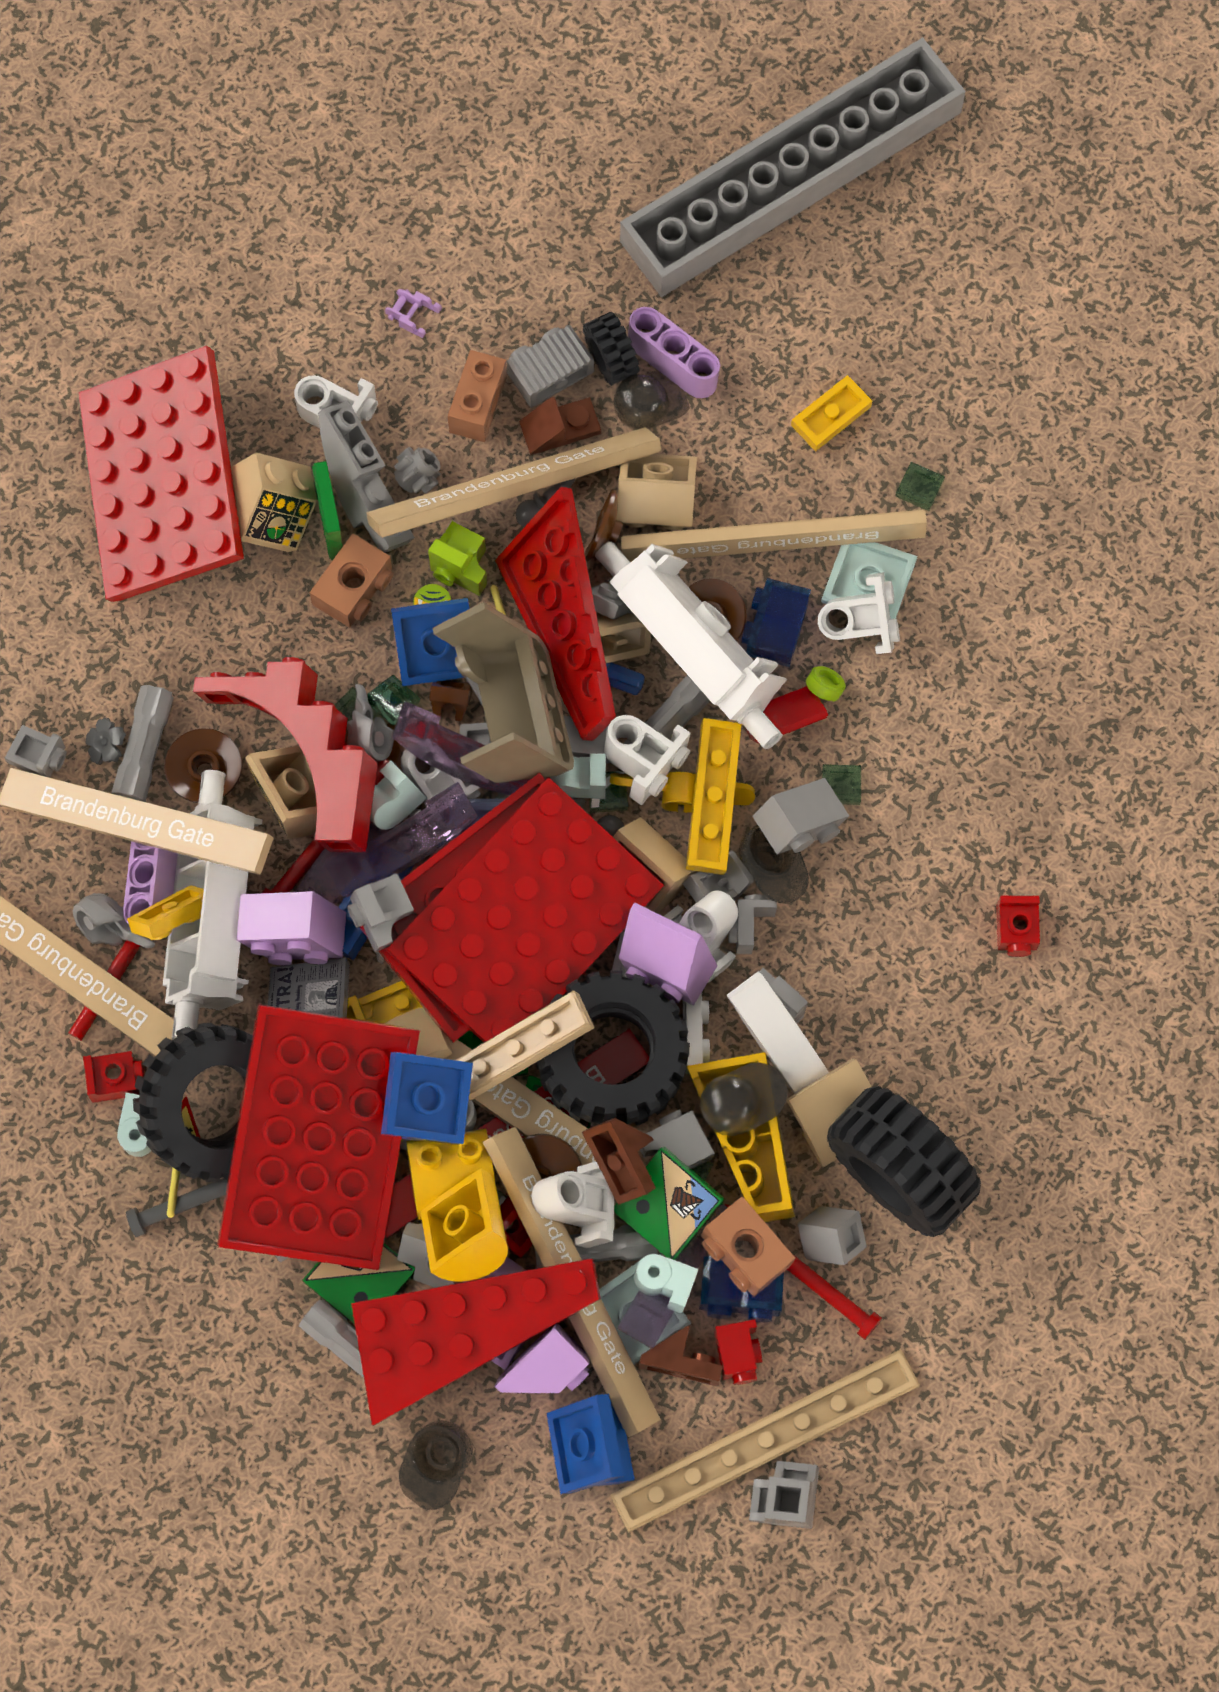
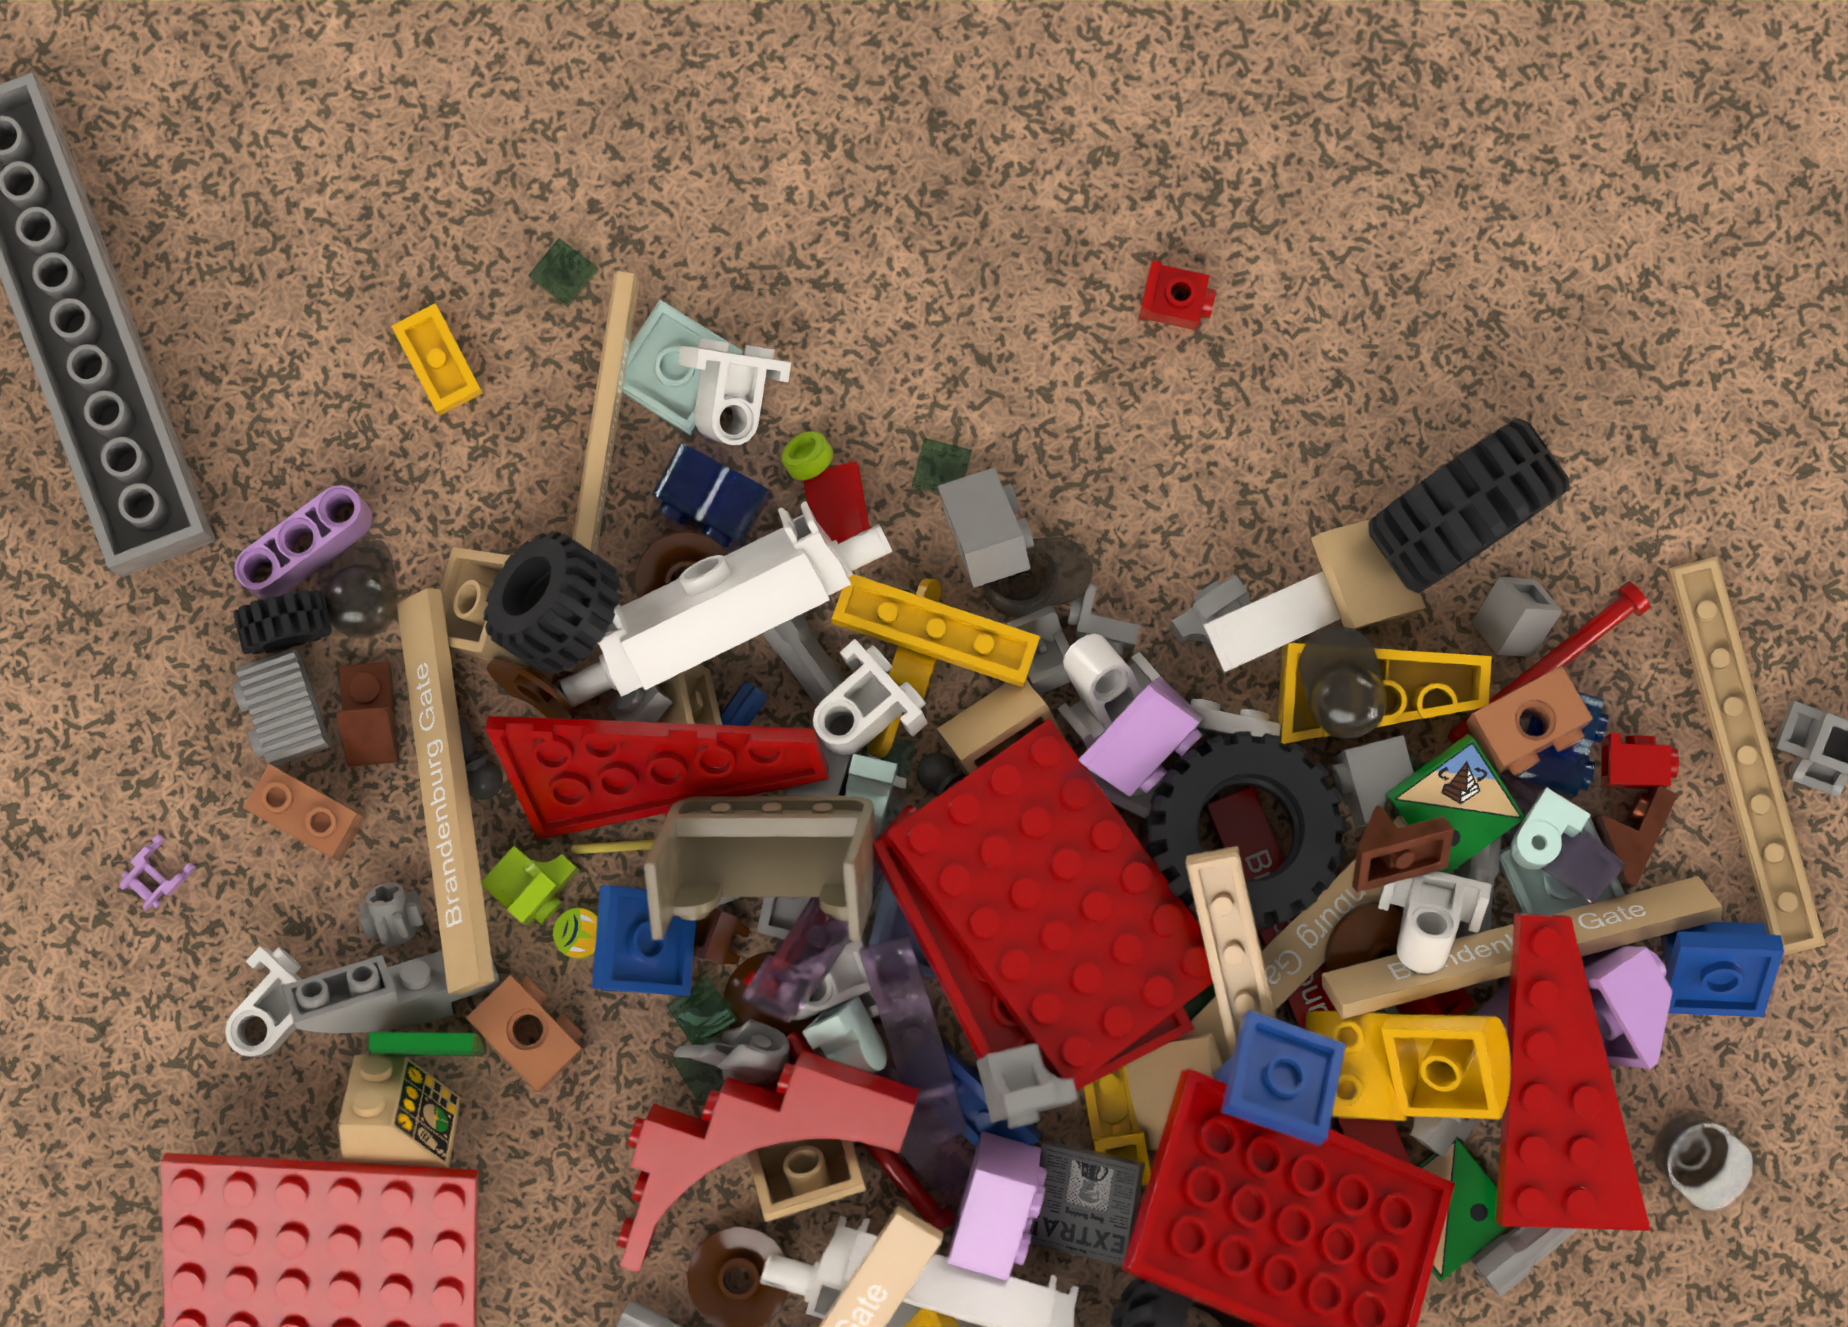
camera: 80 degrees left, 10 degrees up
(664, 512) = (552, 602): none -> black tyre

